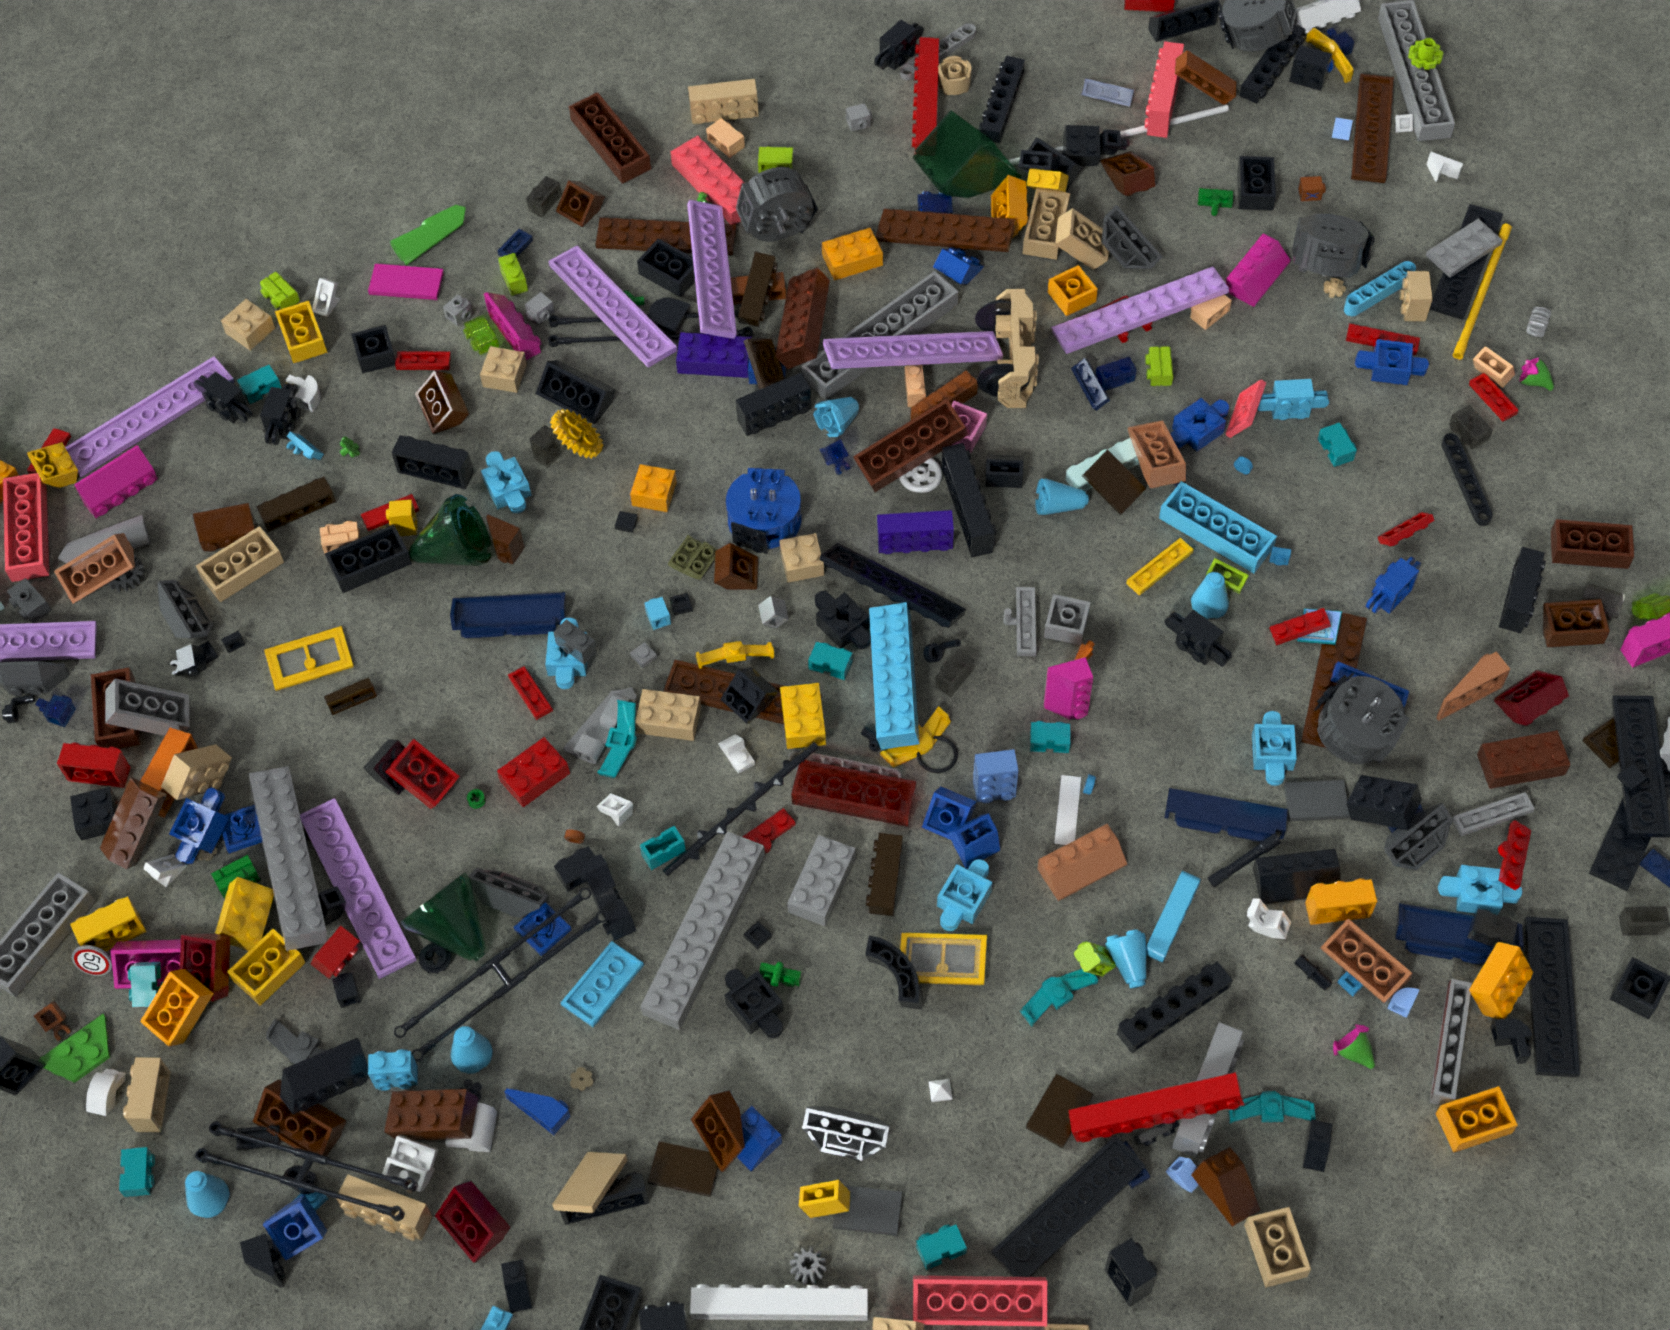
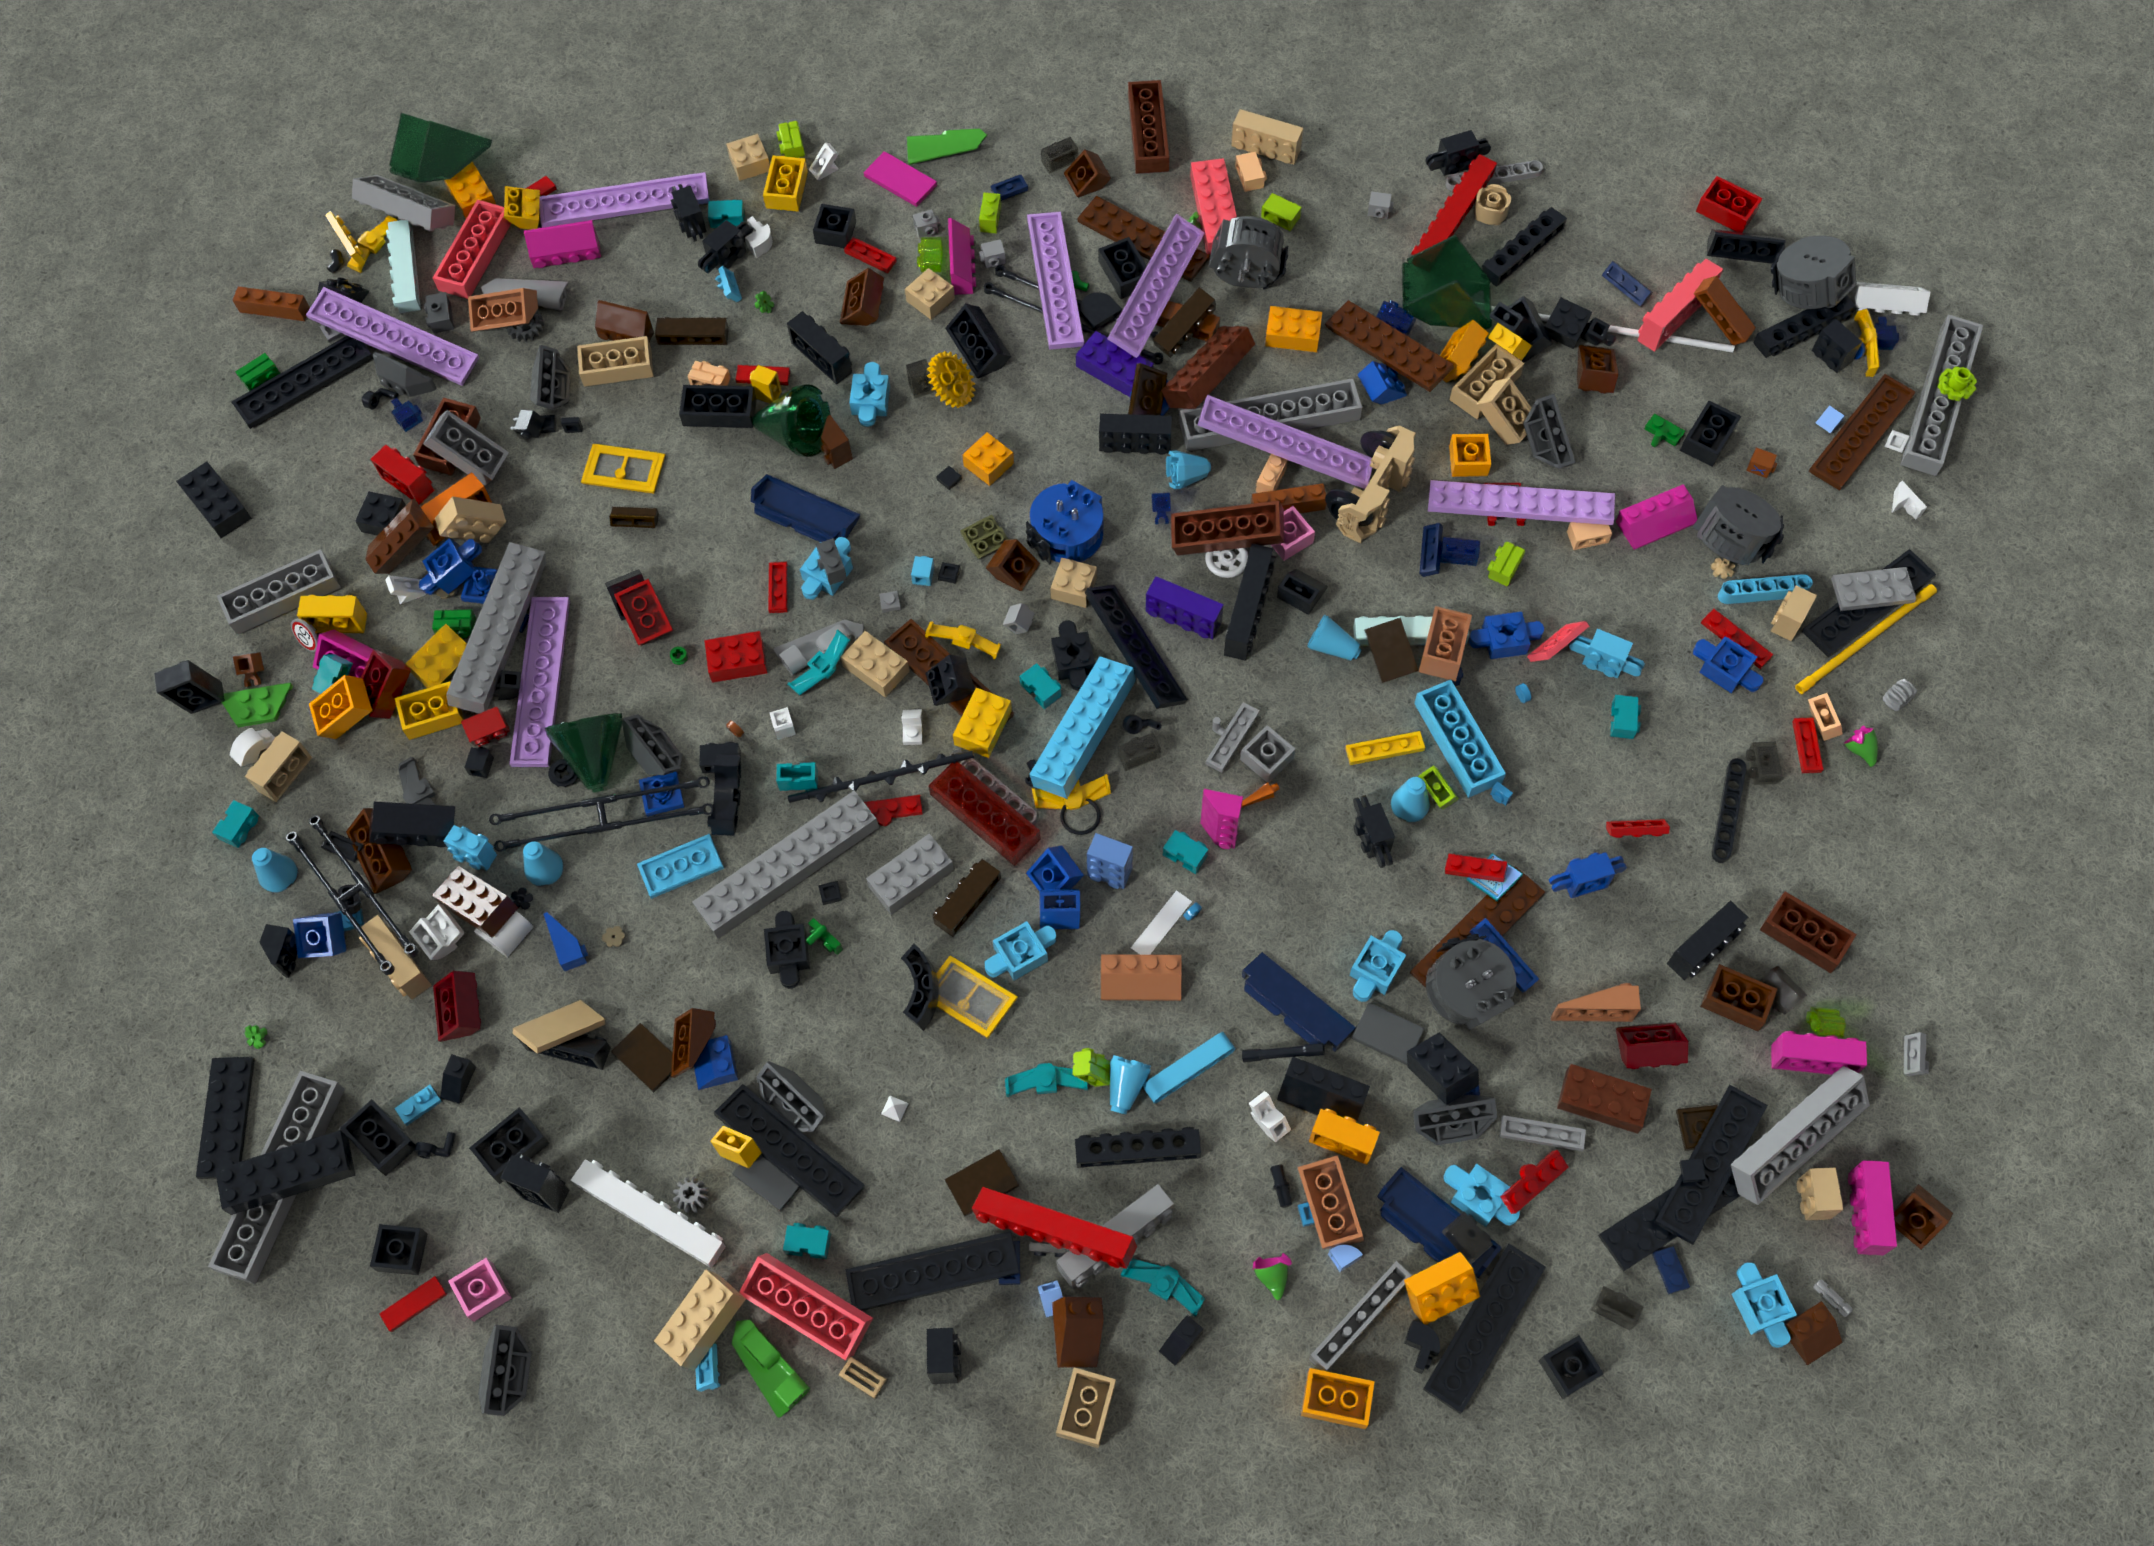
camera: 30 degrees right, 5 degrees up
(873, 1176) = (790, 1150): none -> black plate

